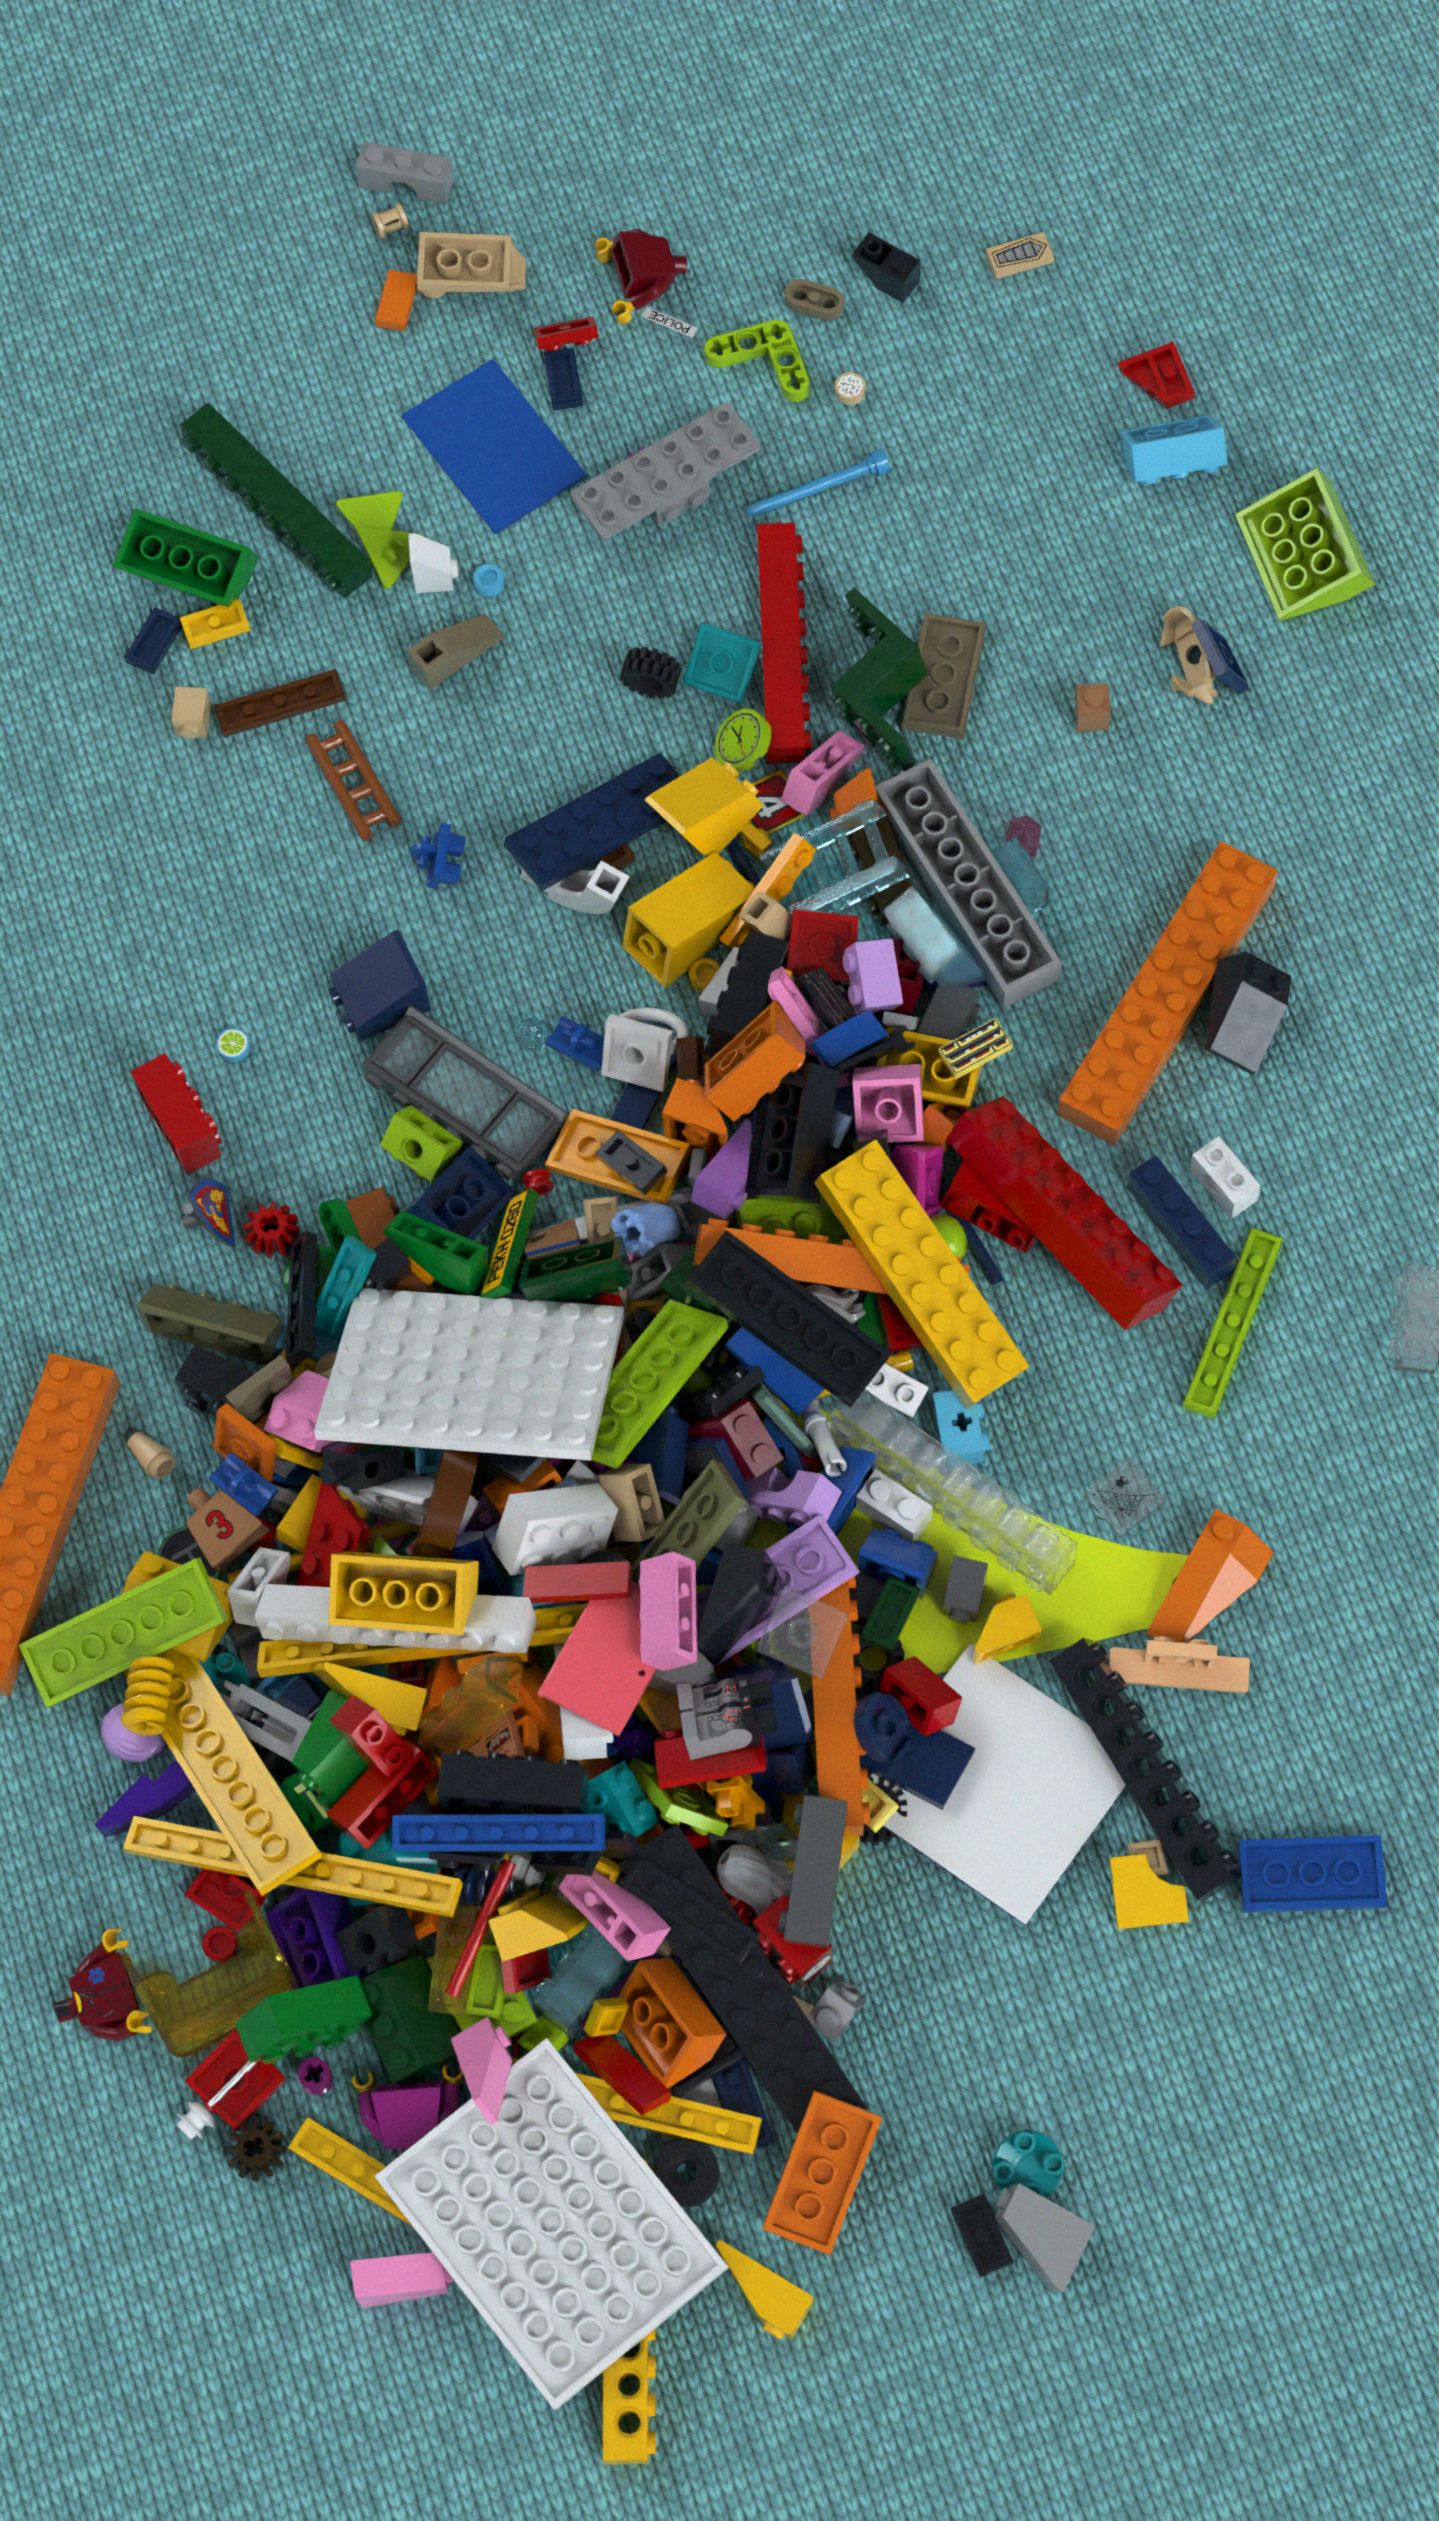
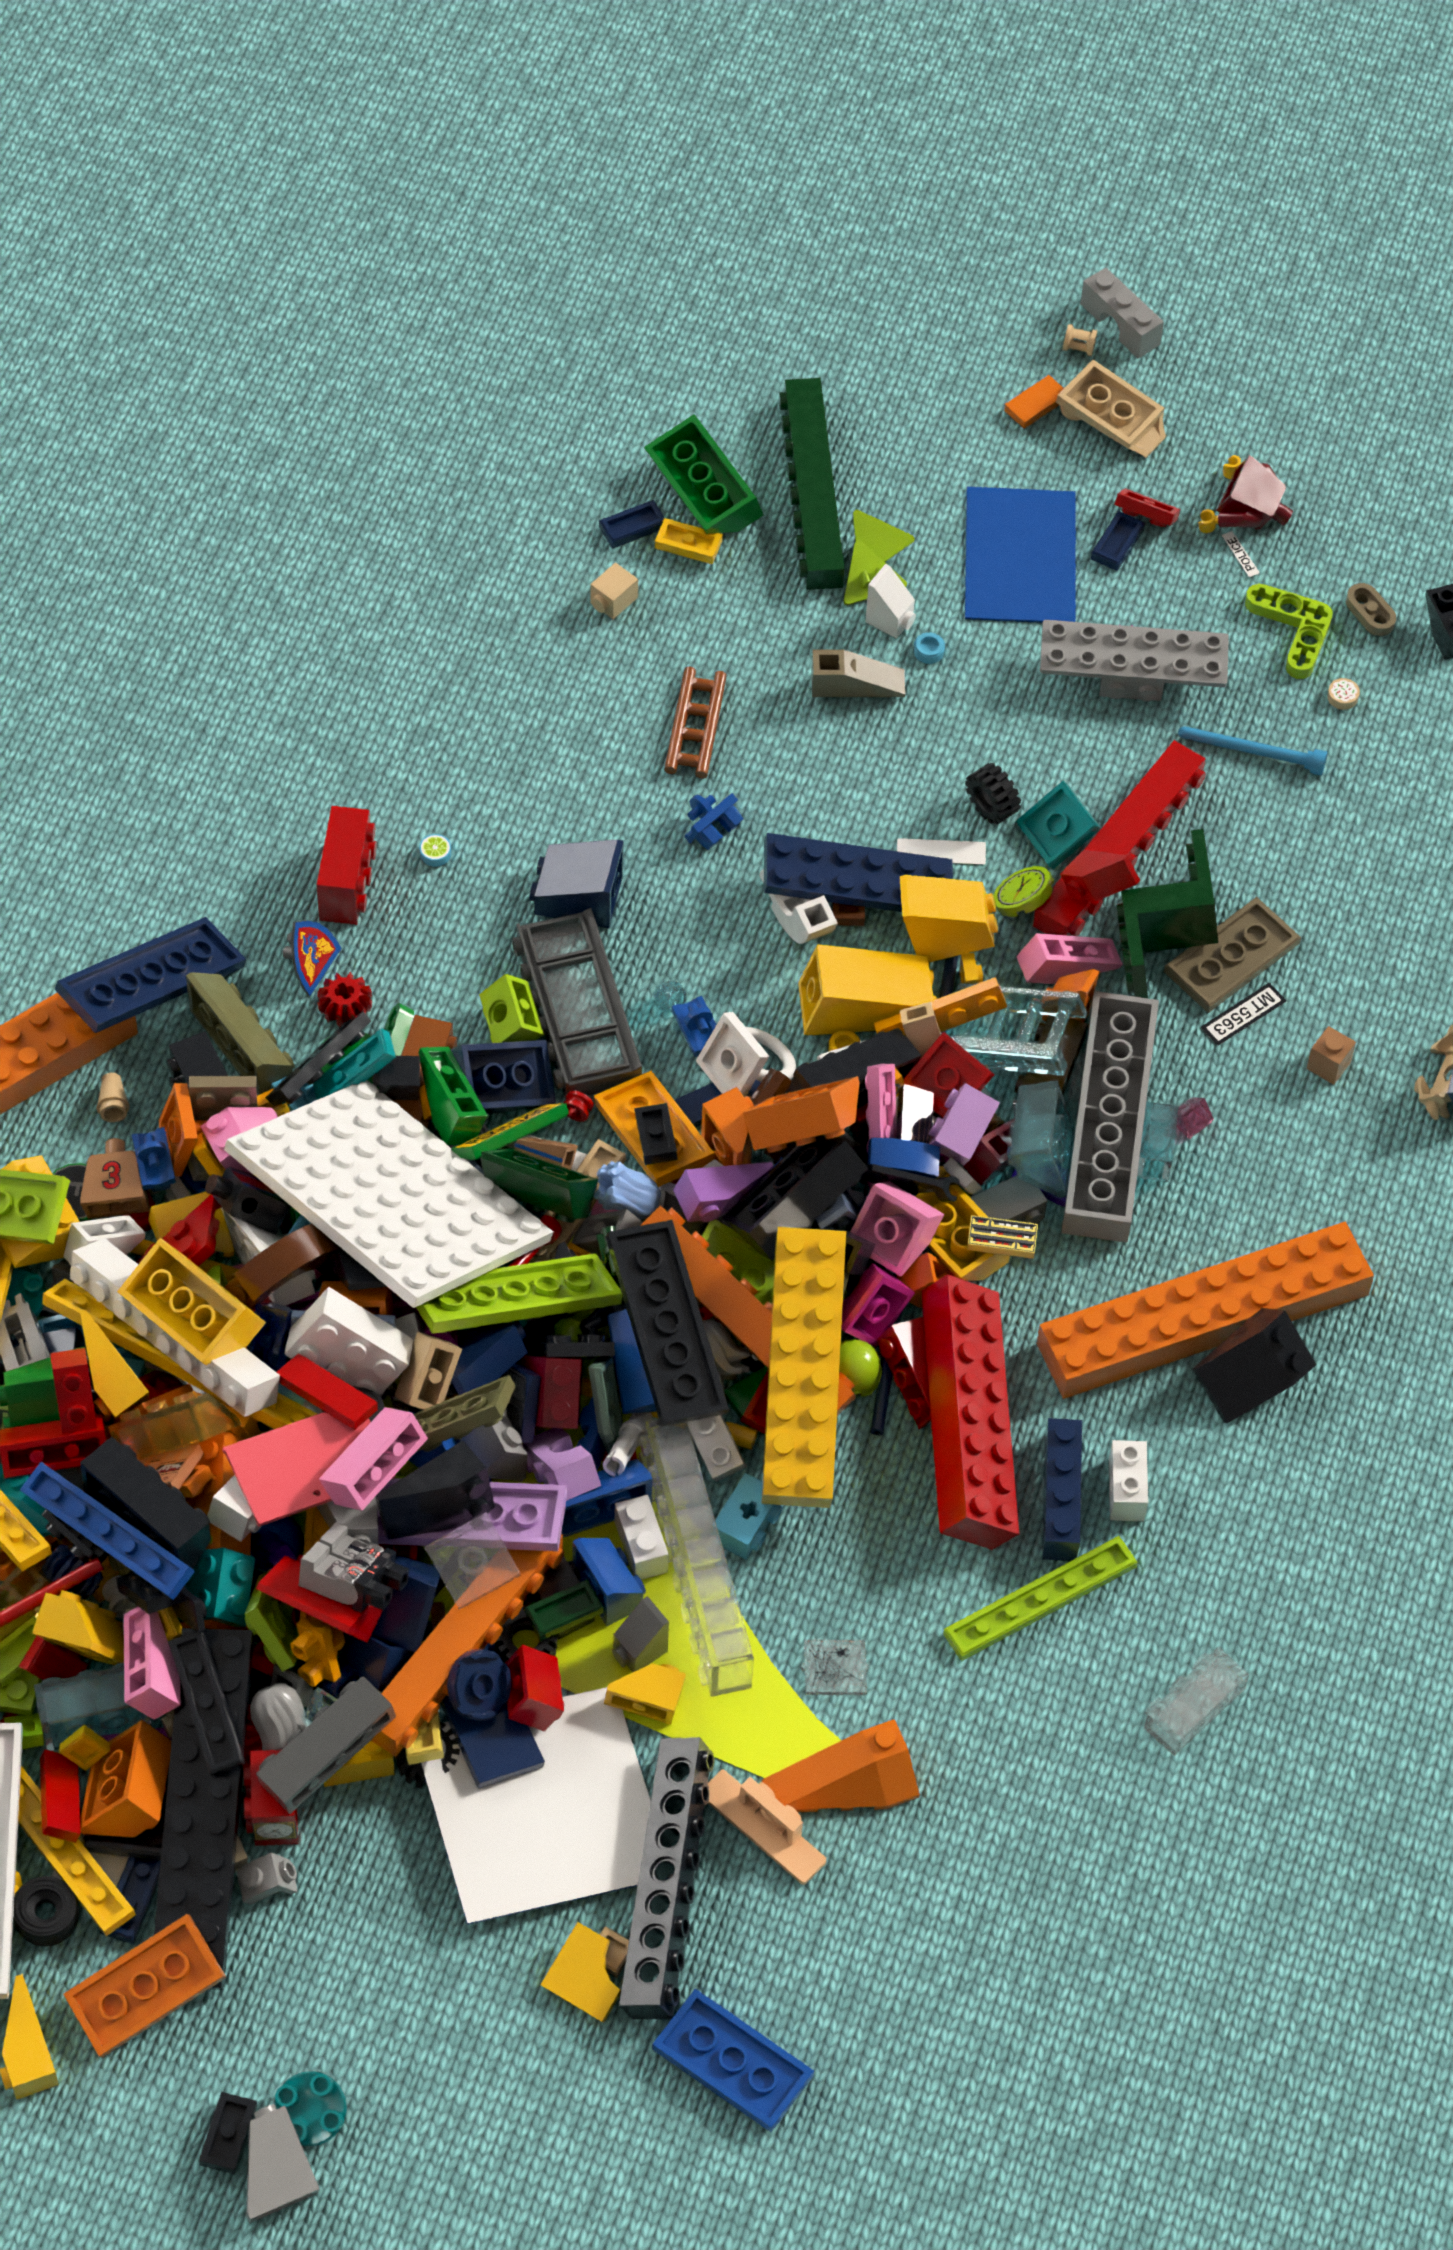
camera: 30 degrees right, 10 degrees down
(99, 1328) = (148, 974): none -> dark blue plate
(279, 703) = (689, 630): reddish brown tile -> none
(647, 746) = (960, 851): none -> white sticker
(774, 813) = (1002, 960): sticker -> none
(802, 685) = (1098, 875): none -> red slope
(991, 720) = (1243, 1014): none -> sticker

